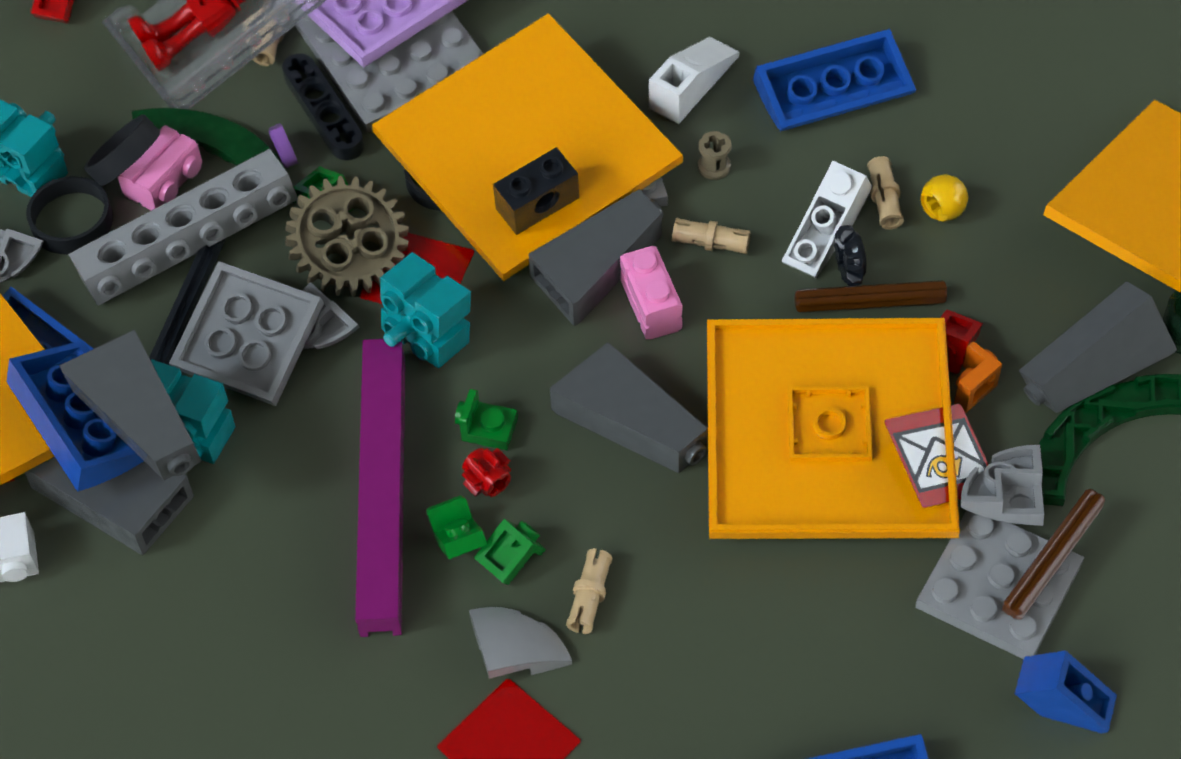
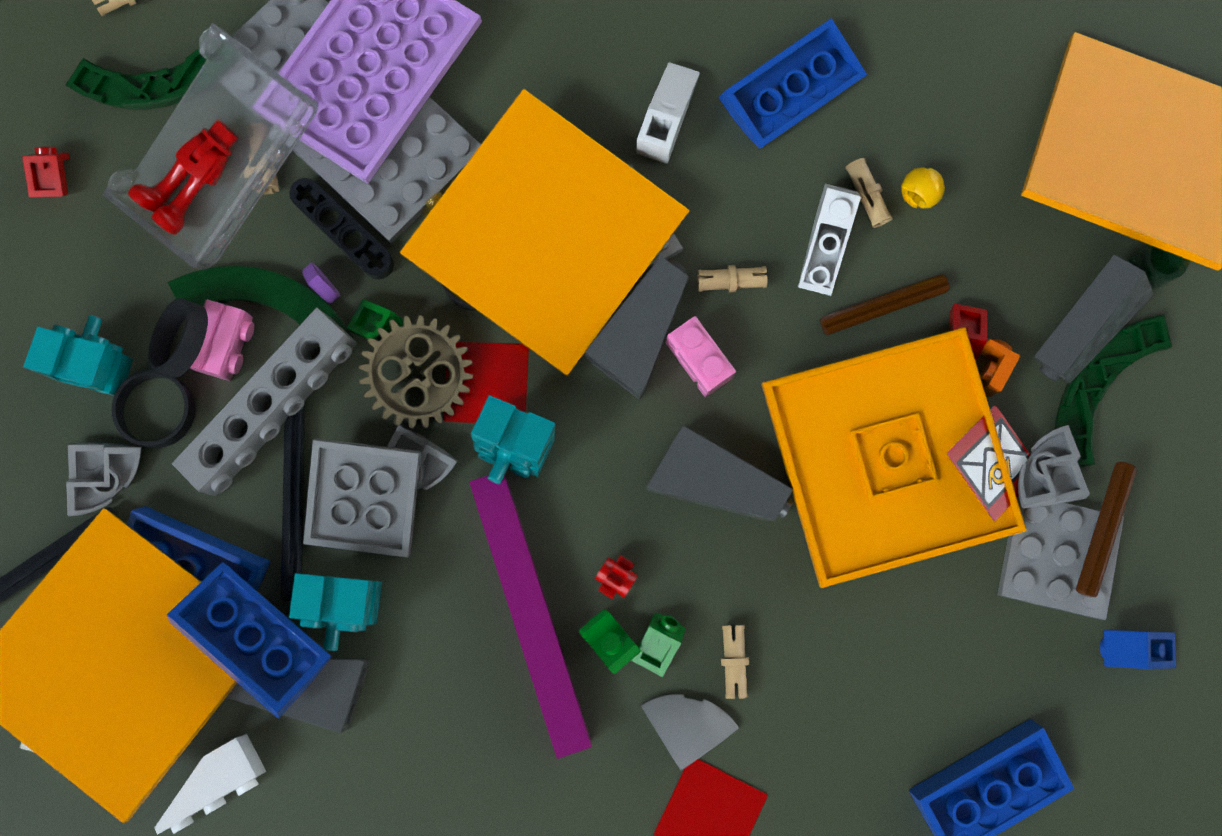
camera: 20 degrees left, 25 degrees up
(131, 399) = (300, 633): dark grey slope -> none
(484, 422) = (597, 523): green bracket -> none
(536, 190) = (575, 290): black brick -> none
(710, 157) = (713, 184): dark tan bush -> none
(850, 255) = (862, 275): black gear -> none

